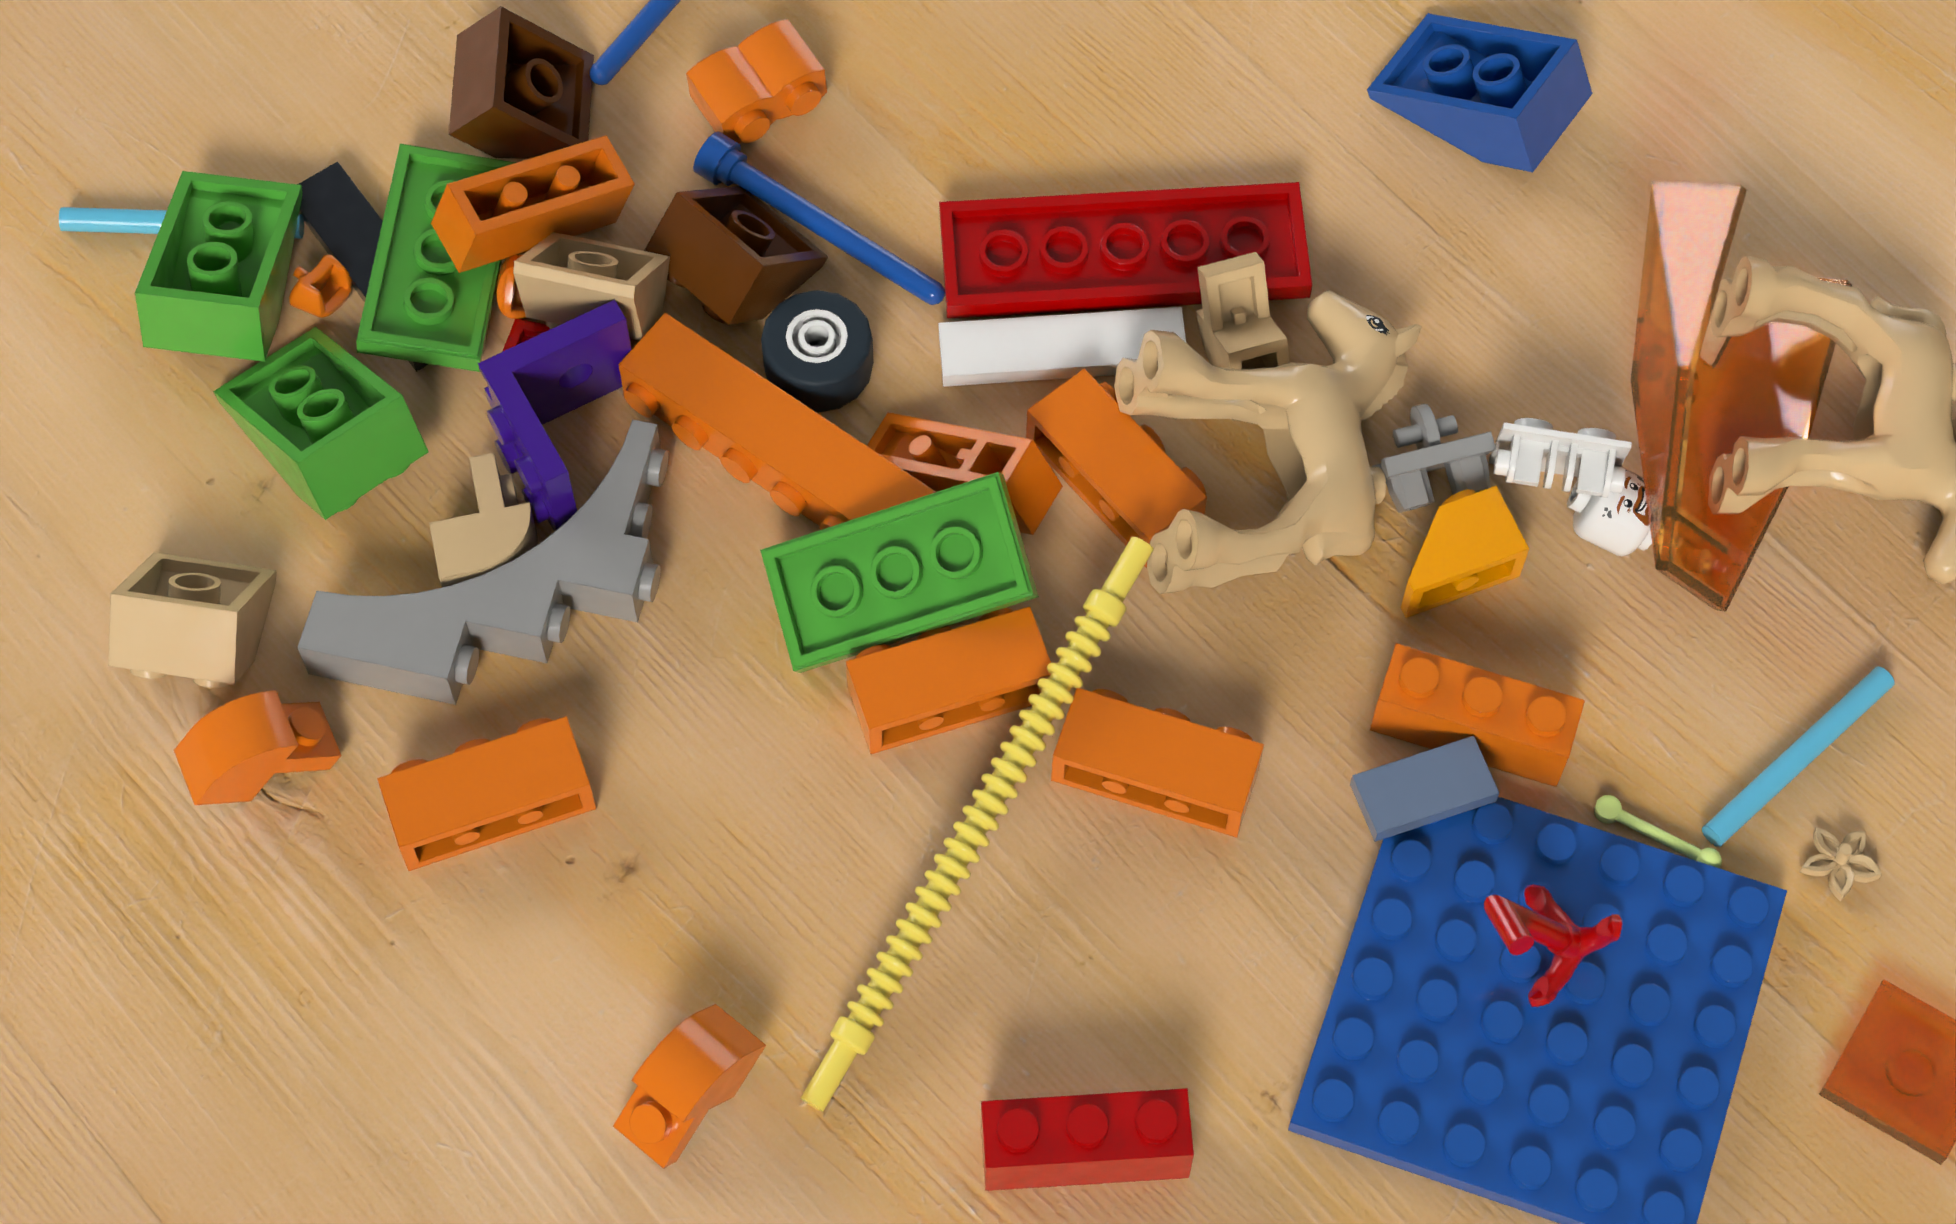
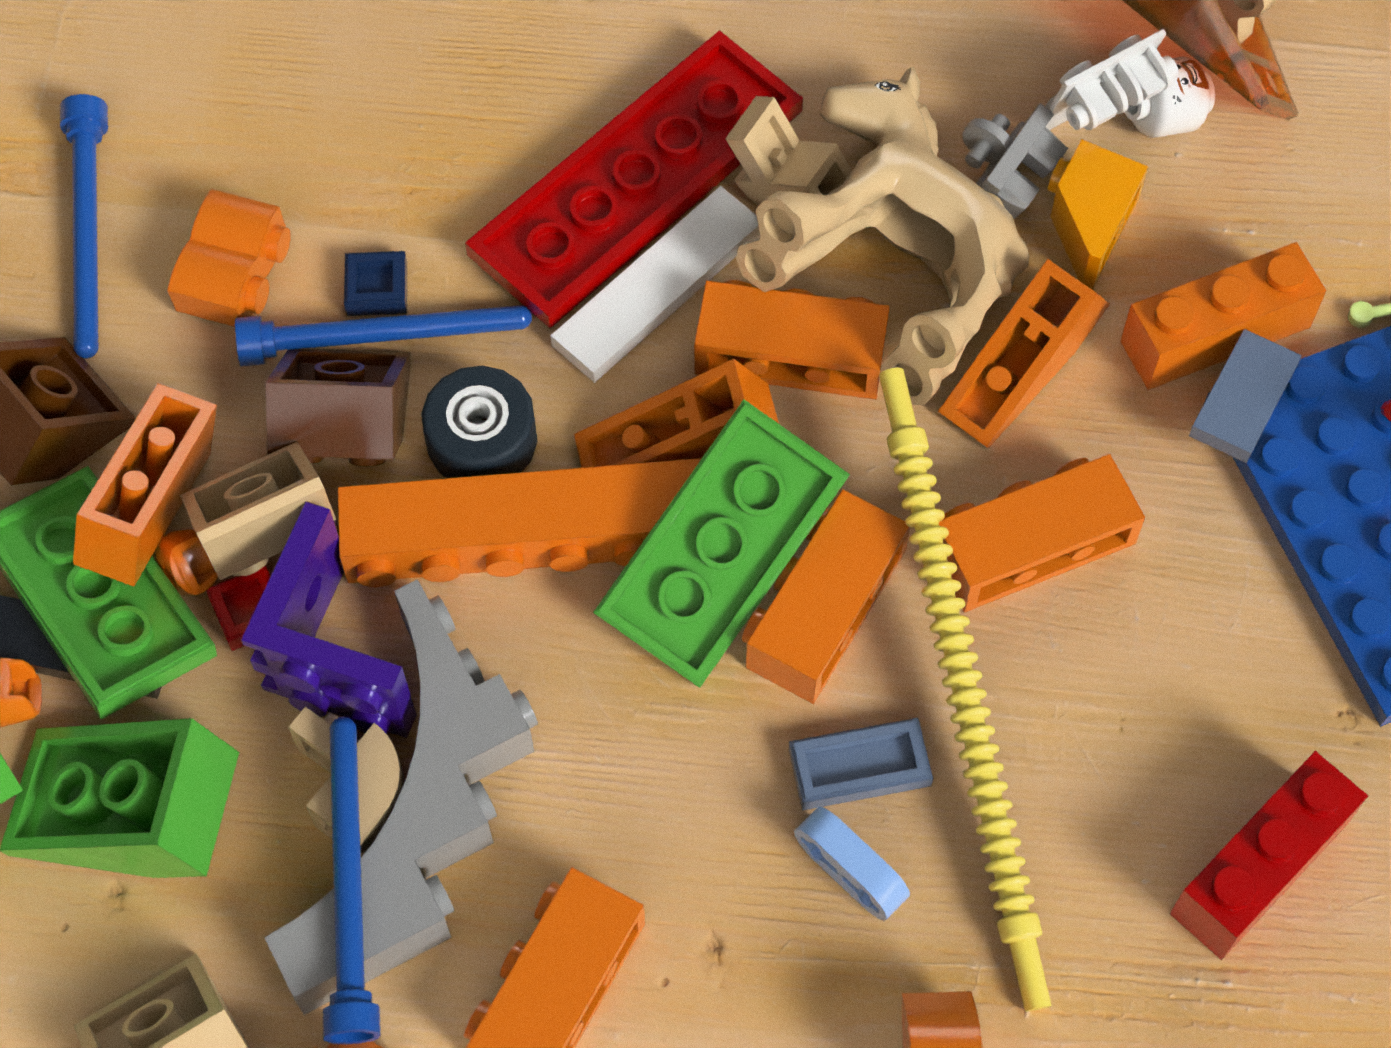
camera: 40 degrees left, 0 degrees up
(322, 688) = (351, 1014): none -> blue piece
(774, 885) = (852, 863): none -> light blue beam
(852, 185) = (375, 283): none -> dark blue tile
(858, 823) = (860, 763): none -> sand blue tile
(1291, 618) = (1024, 353): none -> orange slope

